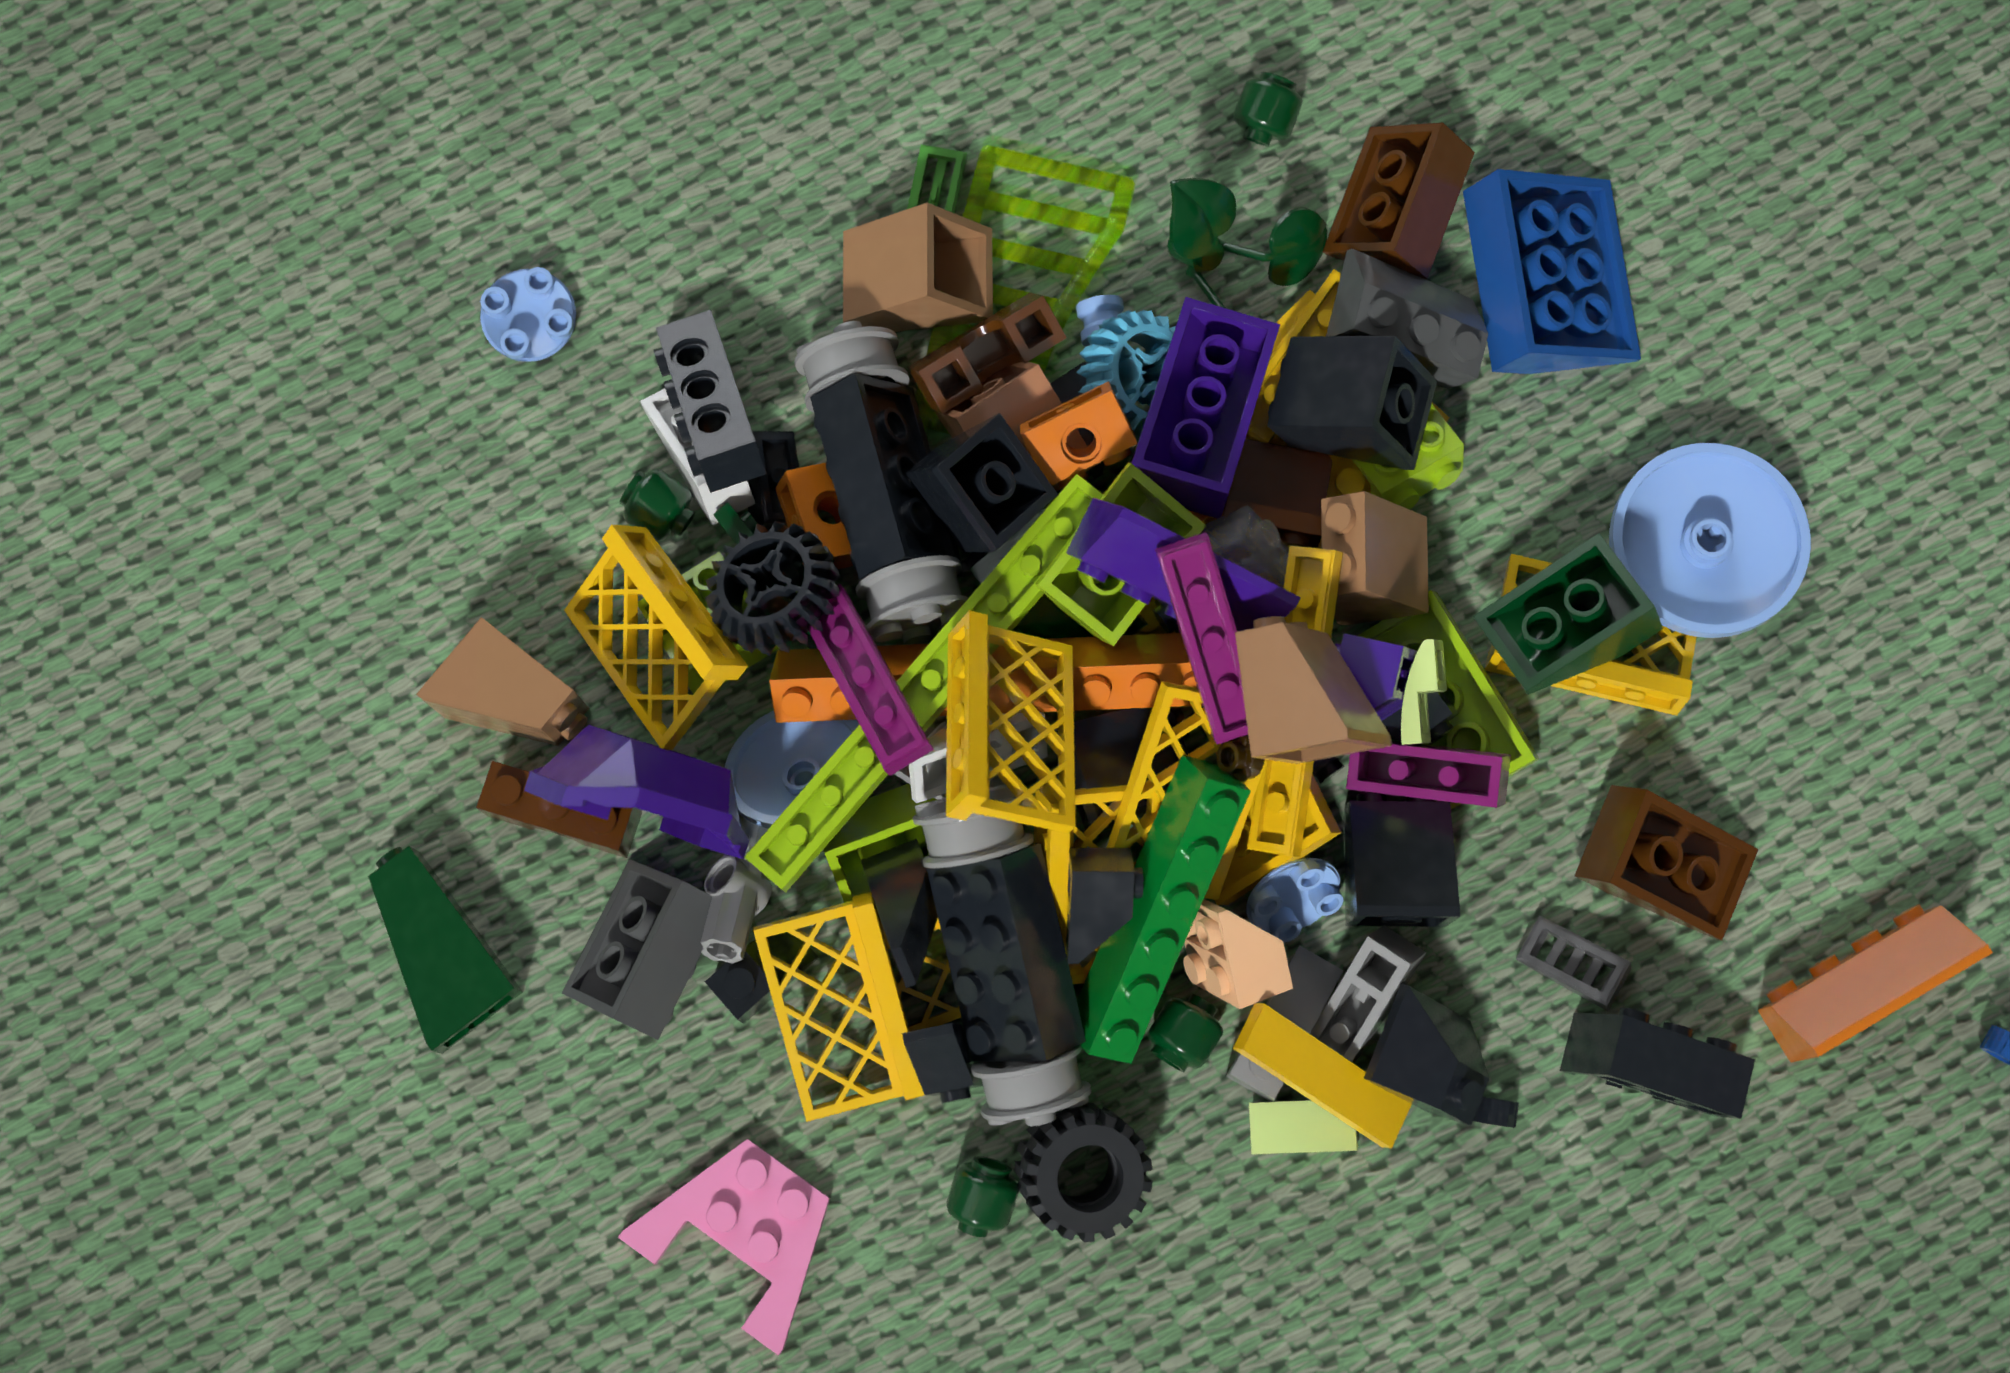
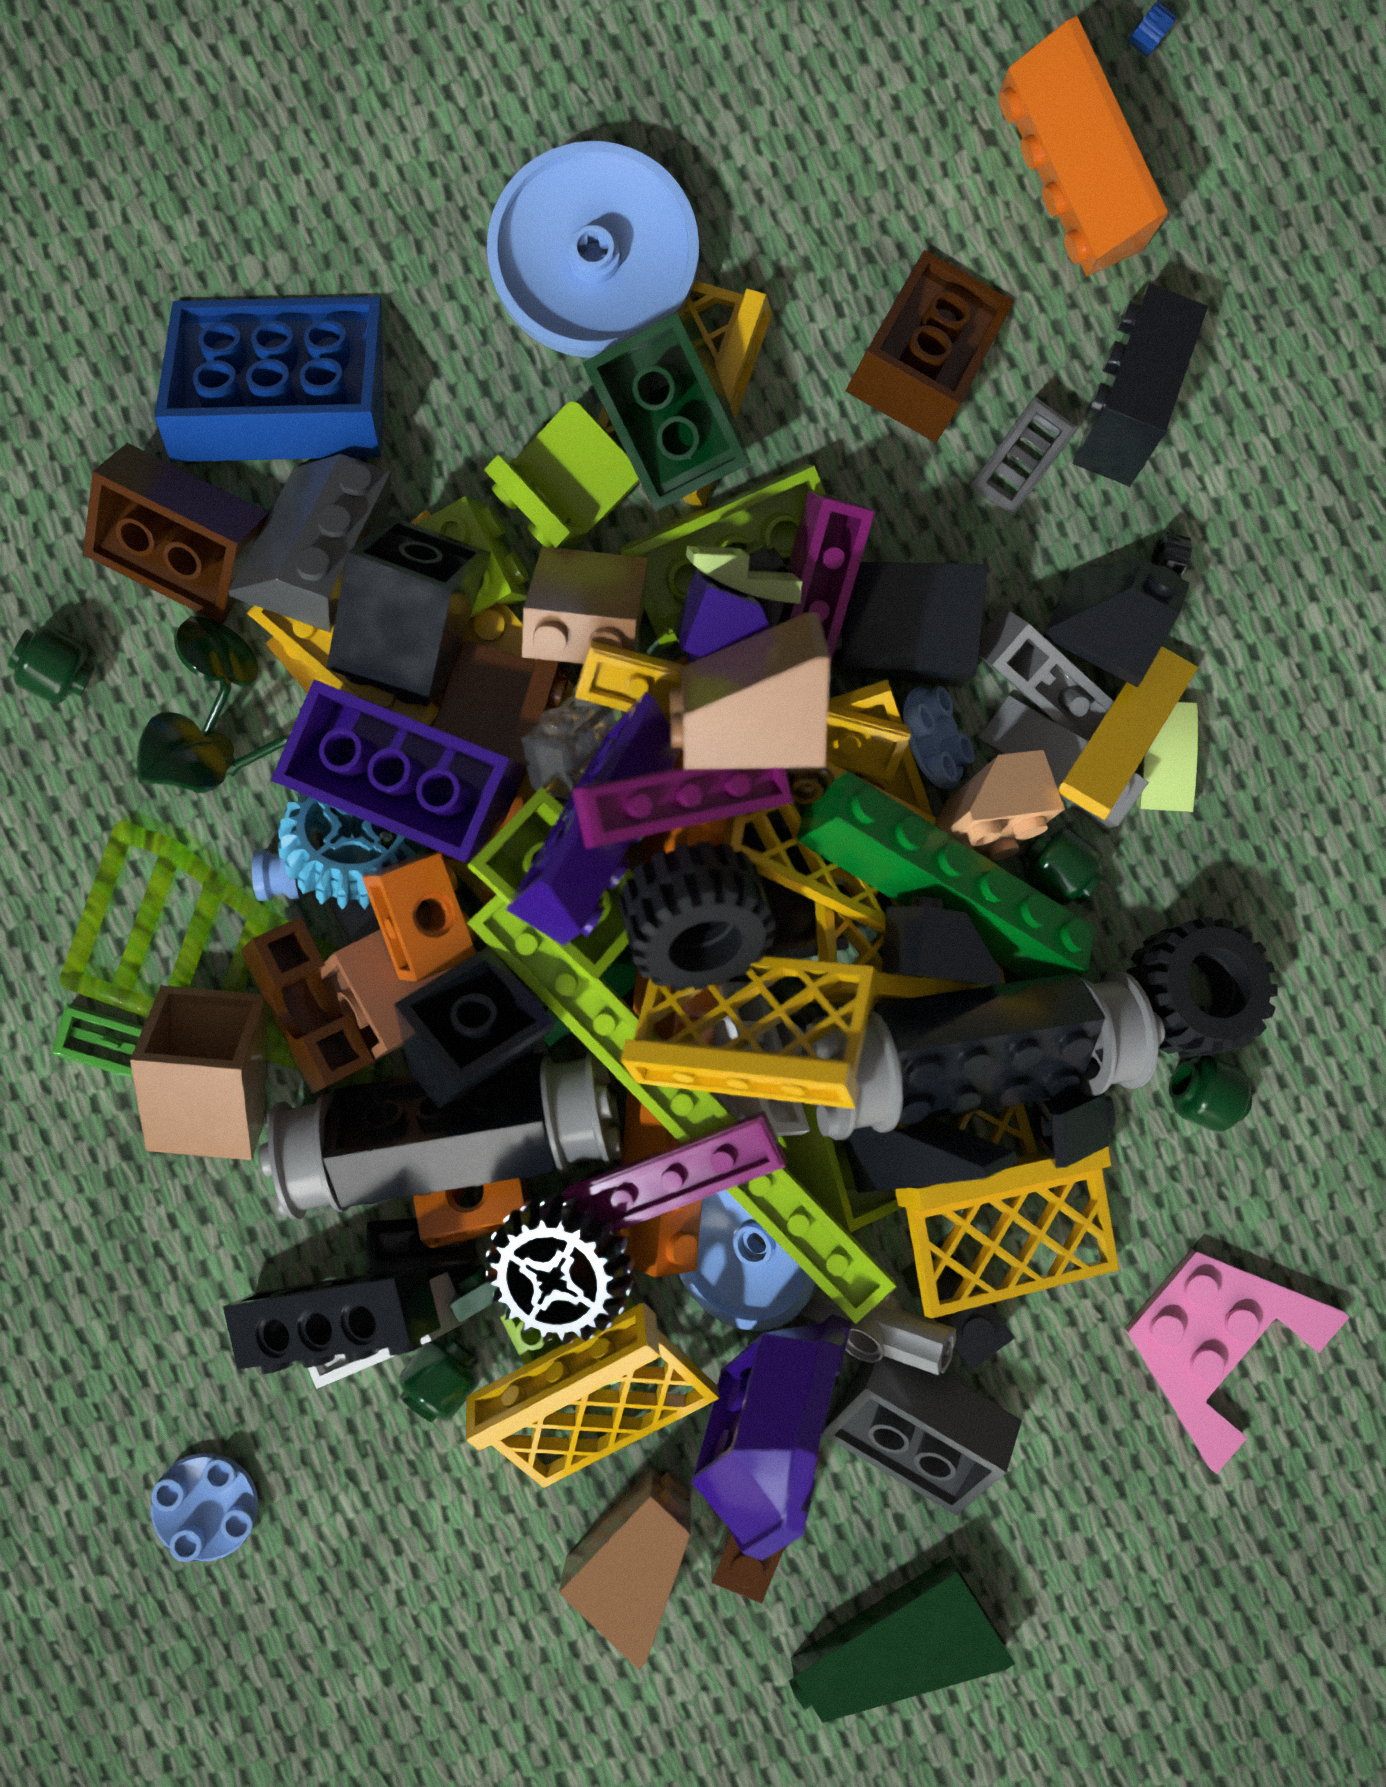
camera: 90 degrees left, 10 degrees up
(1104, 663) = (696, 916): none -> black tyre
(1492, 534) = (565, 478): none -> lime bracket

